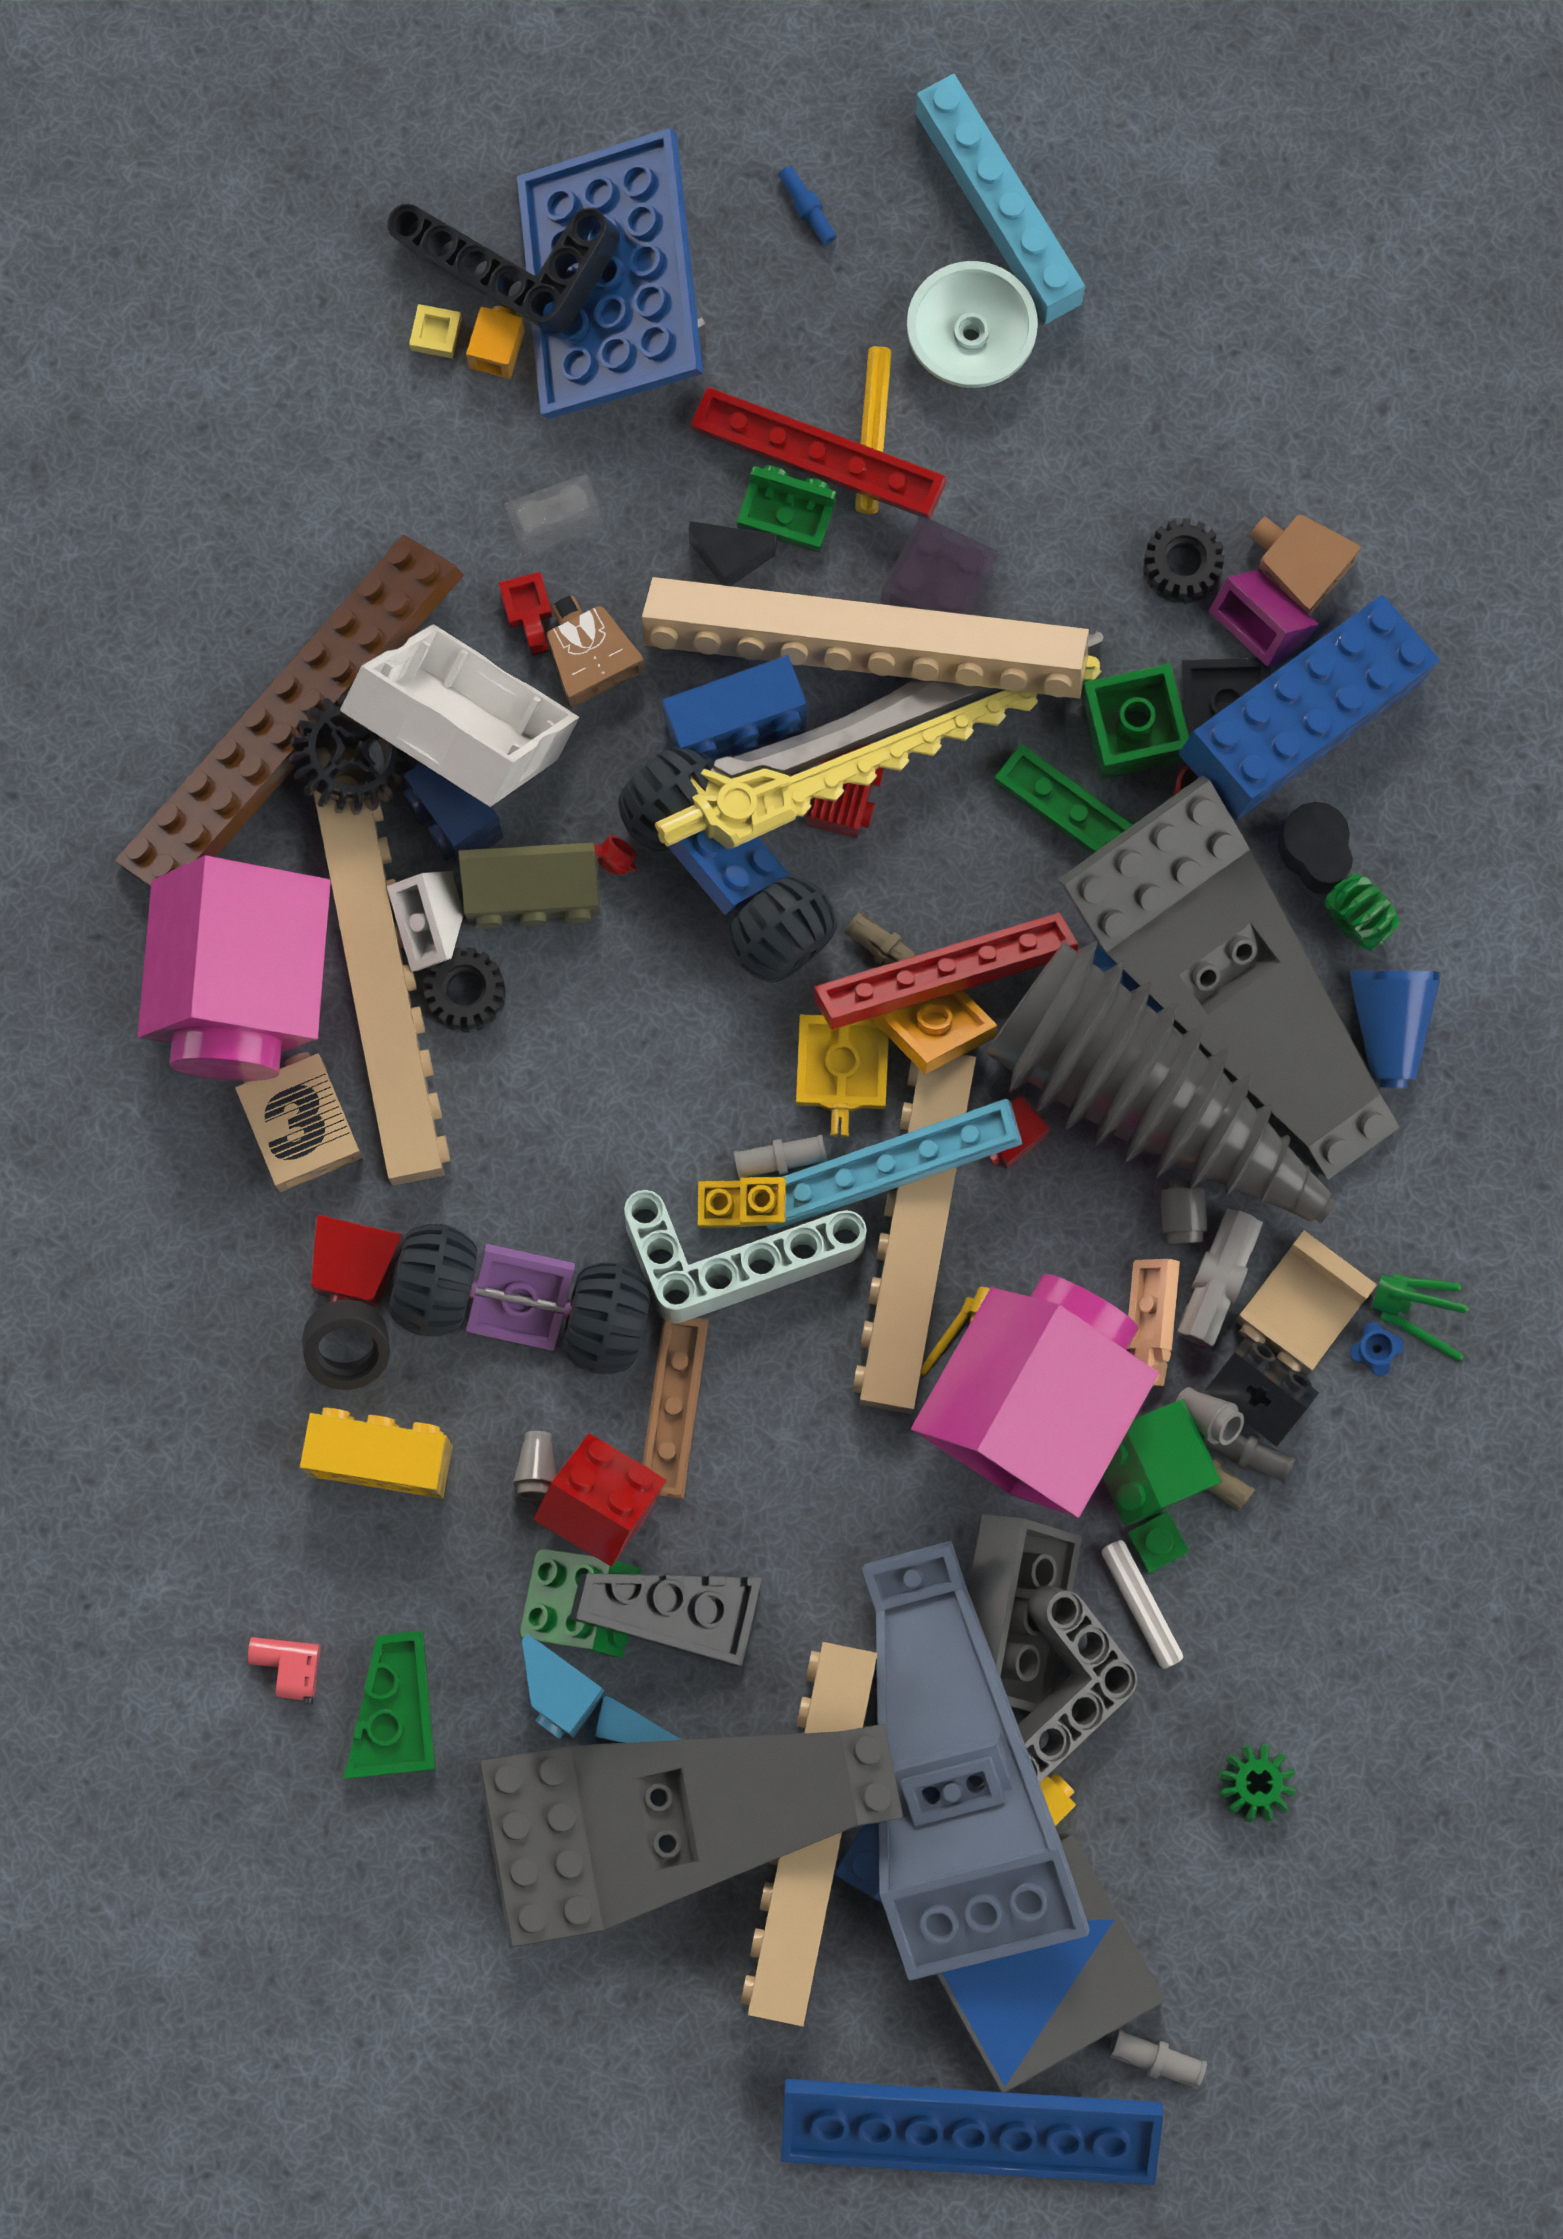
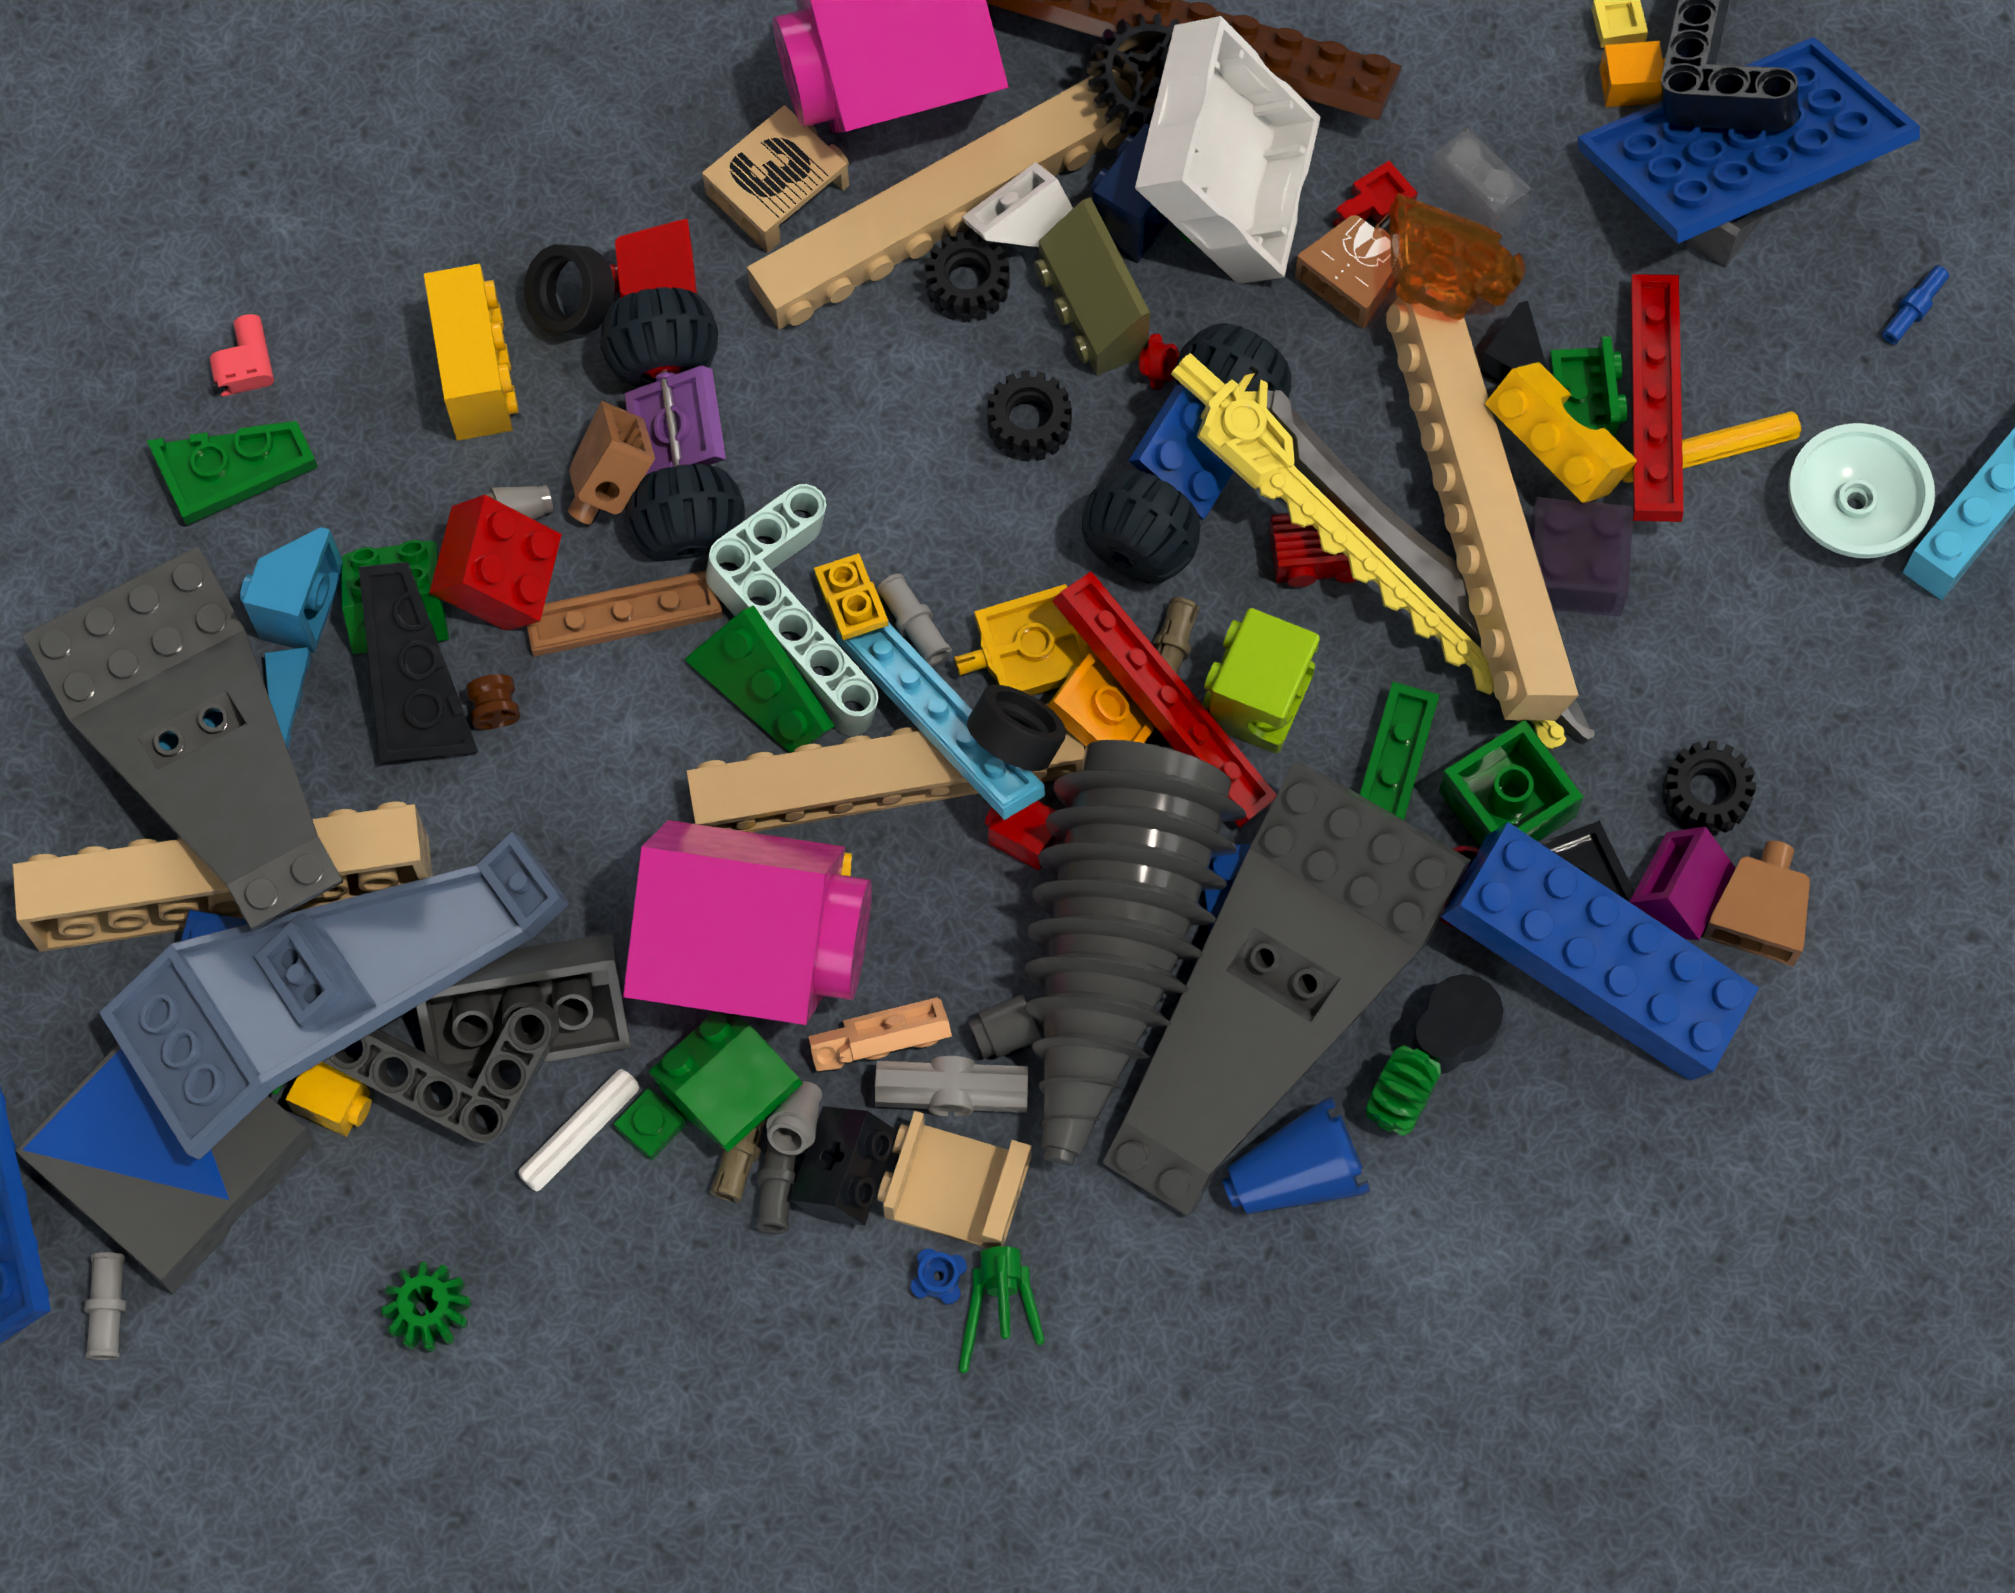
camera: 70 degrees right, 10 degrees down
(537, 1365) = (609, 463): none -> medium nougat torso
(620, 959) = (1029, 441): none -> black tyre
(626, 571) = (1448, 259): none -> clear orange plate
(721, 1548) = (492, 701): none -> reddish brown wheel
(738, 711) = (1350, 408): blue brick -> none
(794, 1305) = (761, 680): none -> green wing
(805, 558) = (1580, 457): none -> yellow arch
(952, 1118) = (1016, 728): none -> black tyre
(959, 883) = (1261, 679): none -> lime piece

